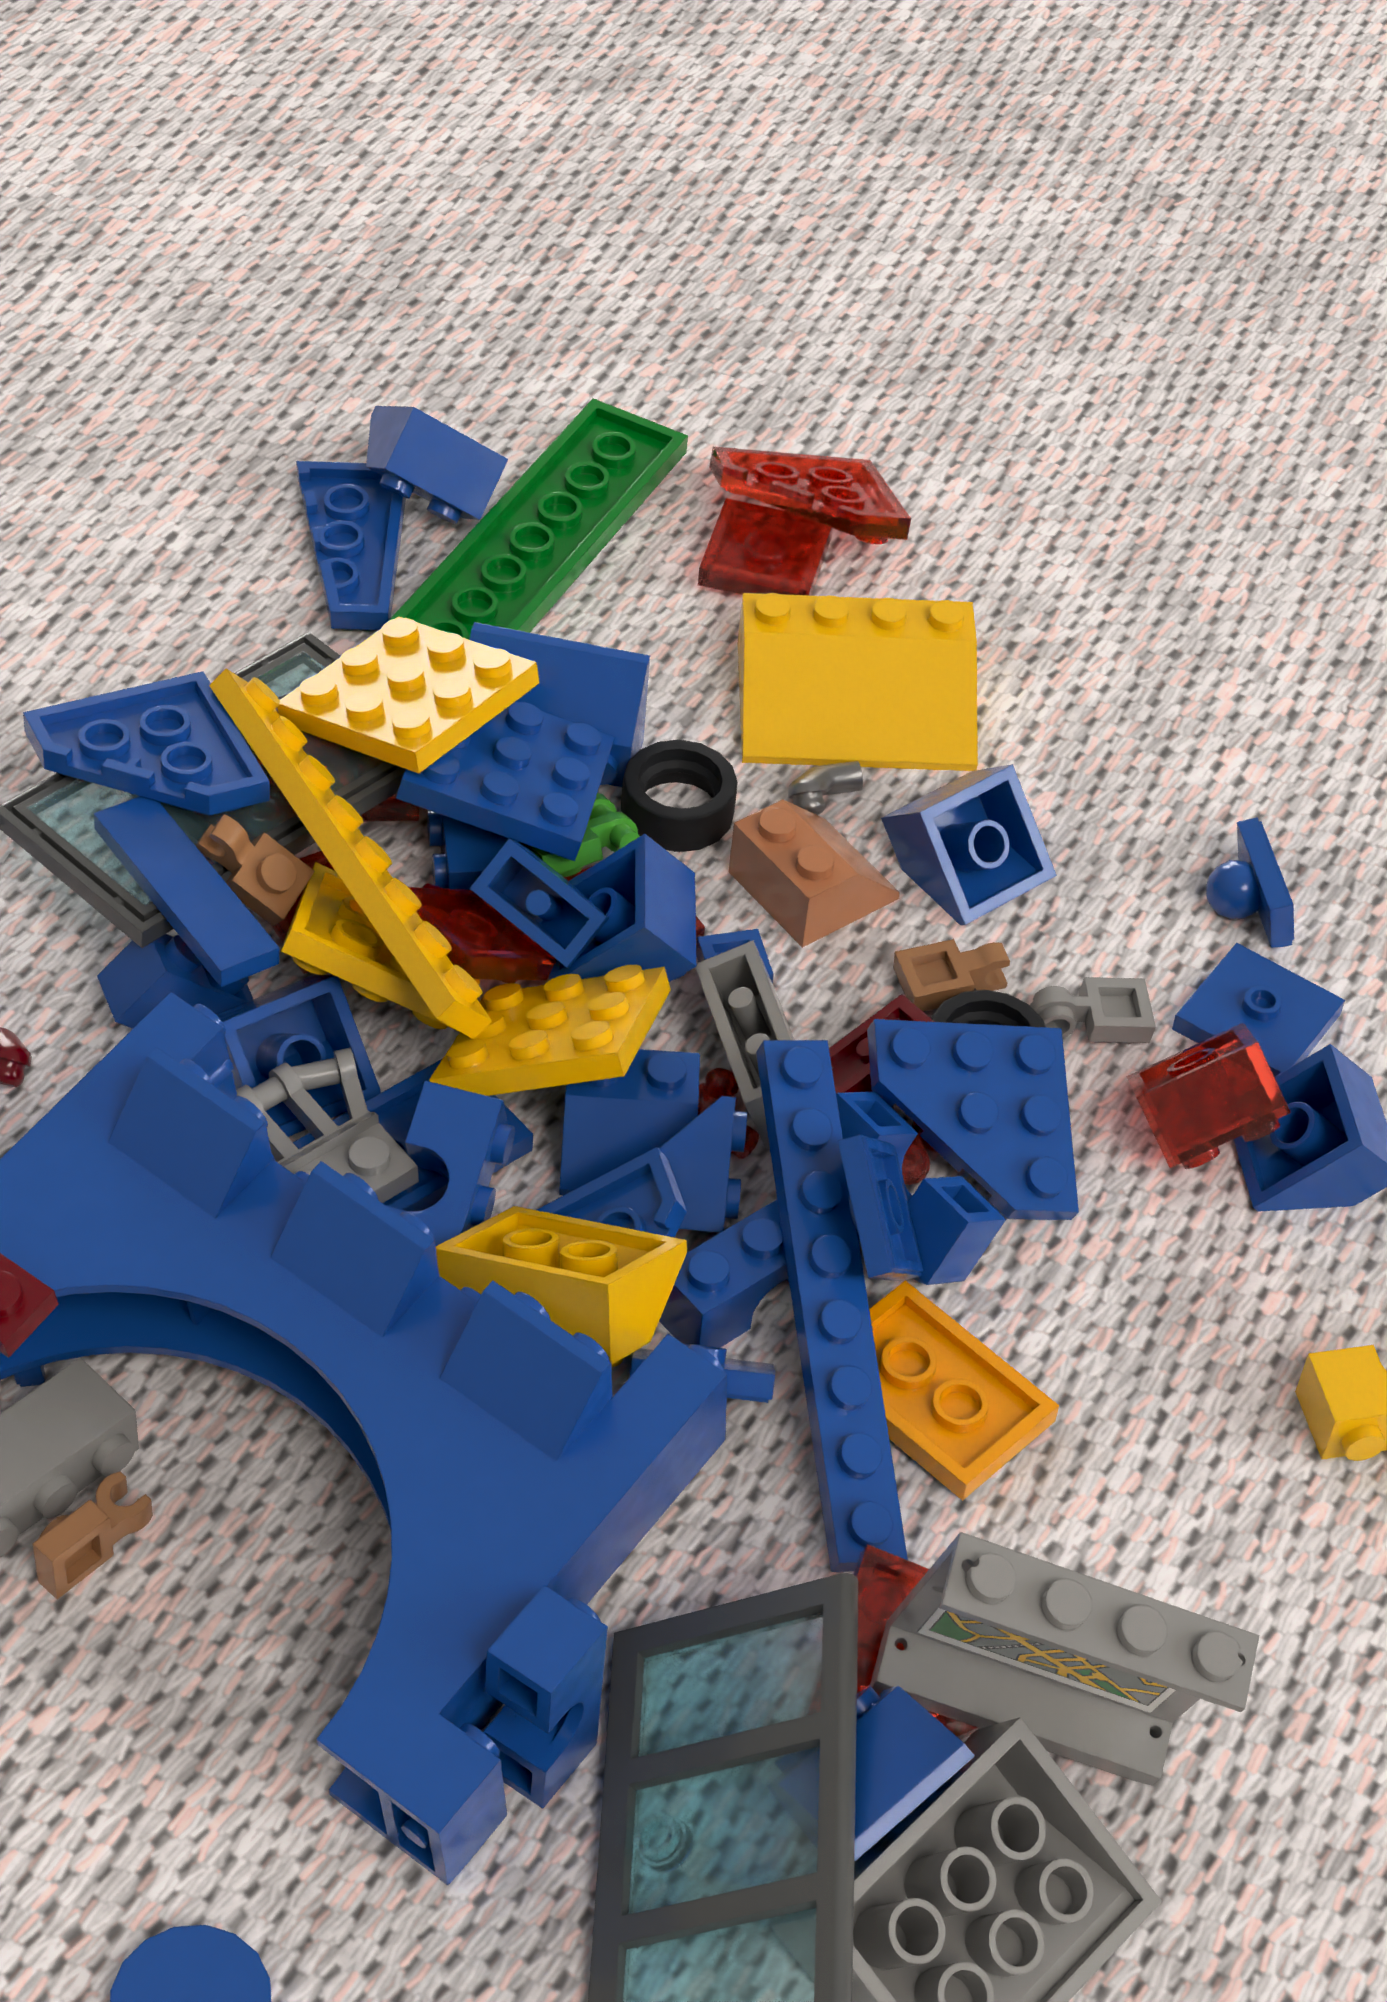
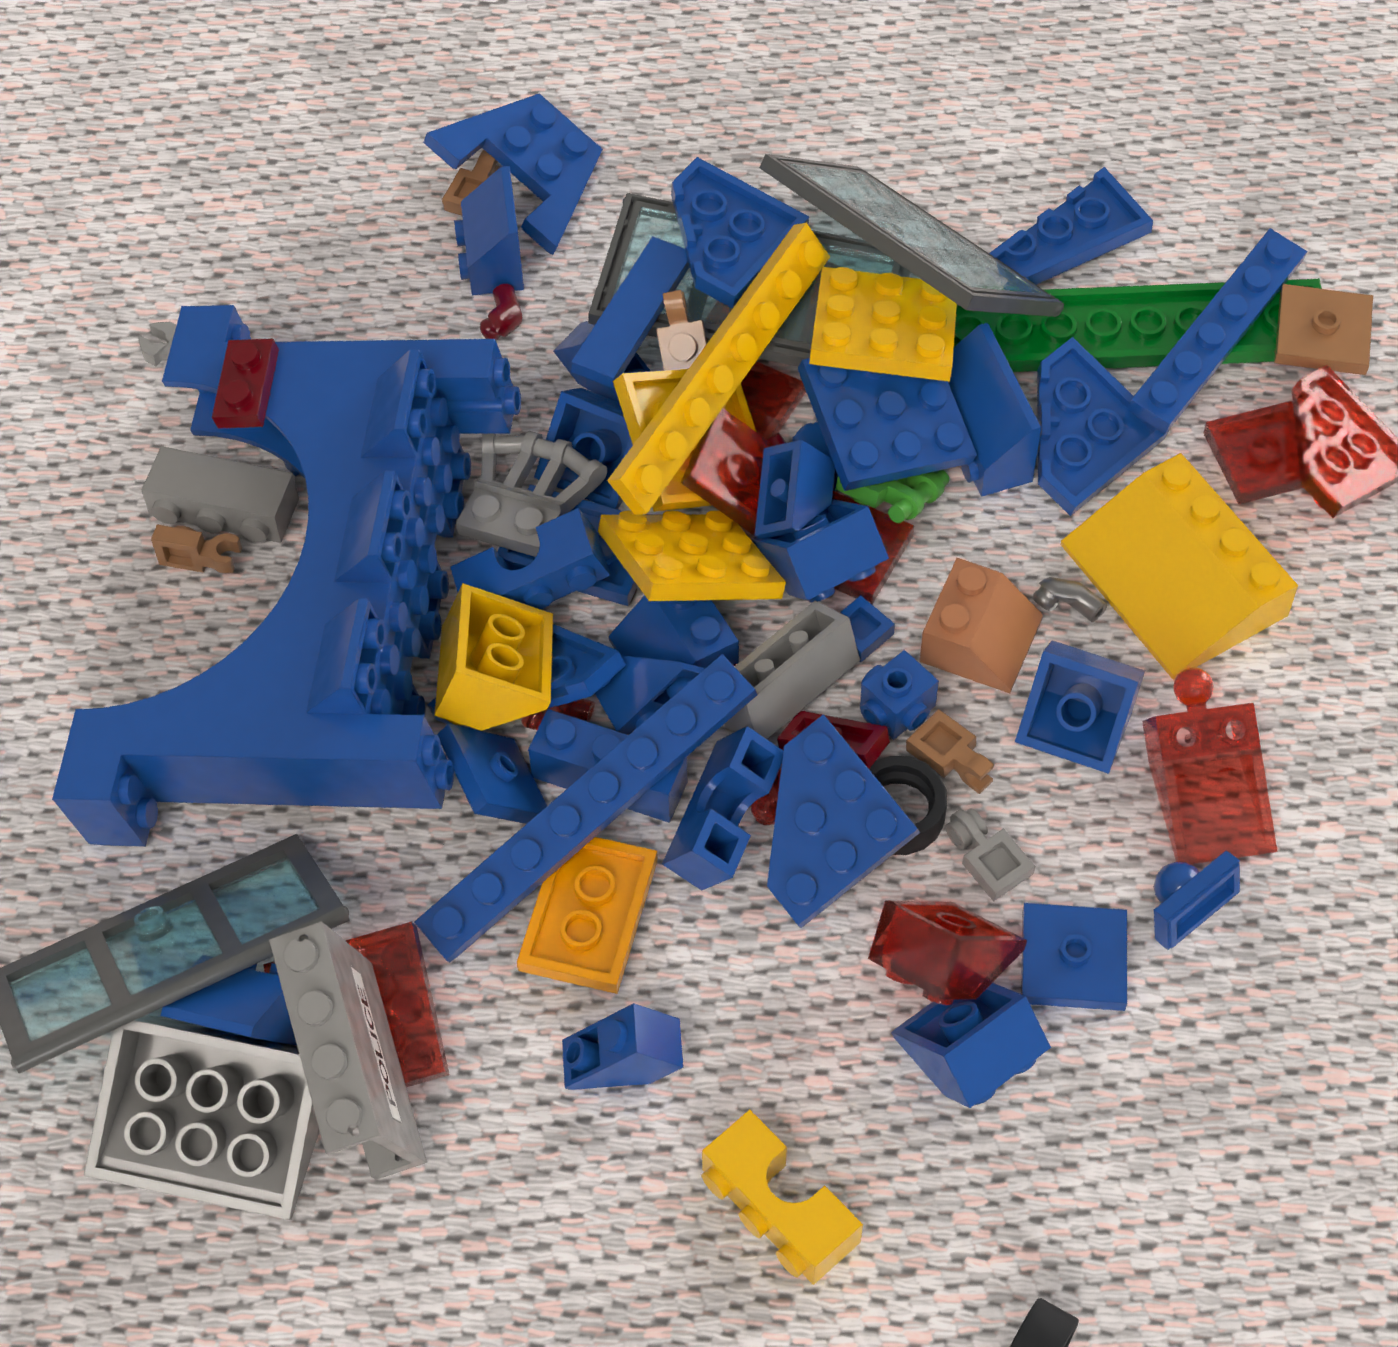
camera: 65 degrees right, 10 degrees up
(281, 626) = (912, 237): none -> door
(432, 461) = (1154, 228): blue slope -> none
(551, 1683) = (189, 799): blue arch -> none
(602, 495) = (1216, 331): none -> blue plate
(665, 425) = (1324, 329): none -> medium nougat plate
(678, 681) = (1085, 427): none -> blue plate
(682, 763) = (985, 493): black tyre -> none
(851, 982) = (898, 694): none -> blue brick
(880, 1208) = (657, 793): blue plate -> none
(1122, 794) = (1217, 785): none -> clear red slope
(1144, 1448) = (623, 1050): none -> blue slope

